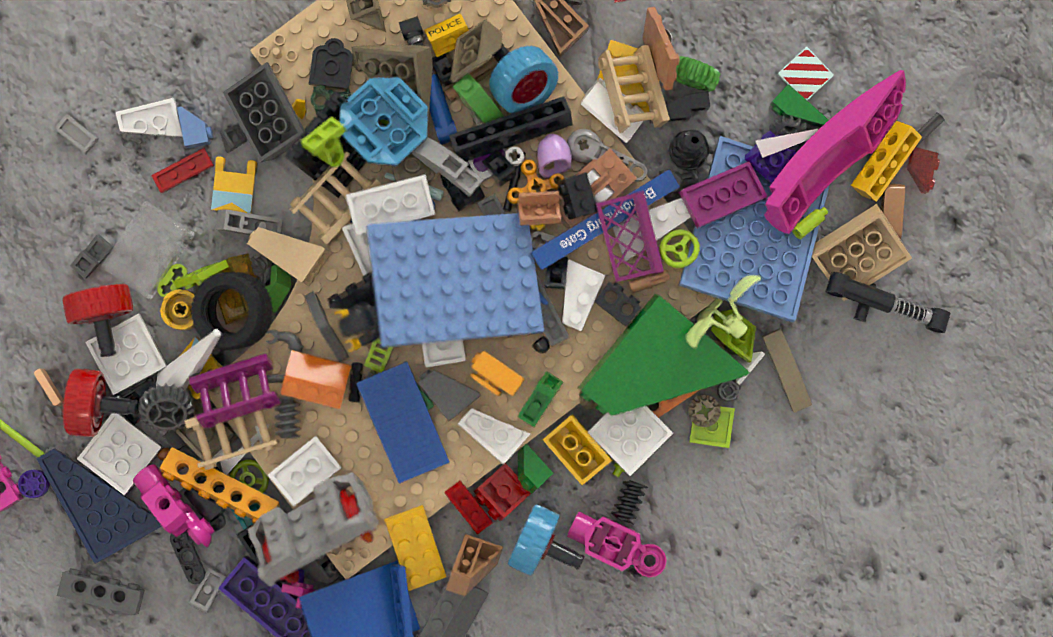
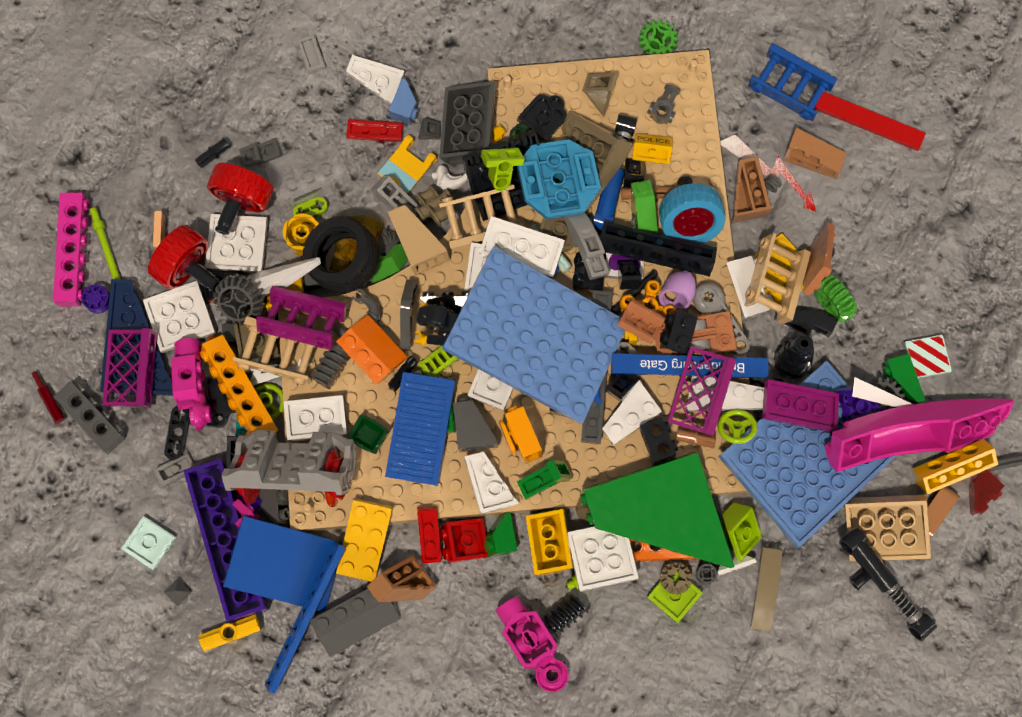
camera: 30 degrees right, 10 degrees down
(48, 284) = (212, 153): none -> black axle
(52, 599) = (48, 400): none -> dark red axle
(119, 516) = (145, 368): none -> magenta fence
(200, 275) = (325, 213): lime plate -> none
(279, 209) = (429, 205): none -> dark tan axle
(280, 178) = (446, 180): none -> white animal
(360, 456) = (368, 434): none -> dark green piece
(475, 48) = (668, 167): dark tan slope -> none
(519, 152) = (645, 266): white bush -> none
(537, 542) = (466, 597): dark azure wheel -> none
(541, 345) = (573, 436): black hinge -> none
(732, 323) = (744, 516): yellowish green plant -> none
(809, 222) = (859, 475): lime cylinder -> none

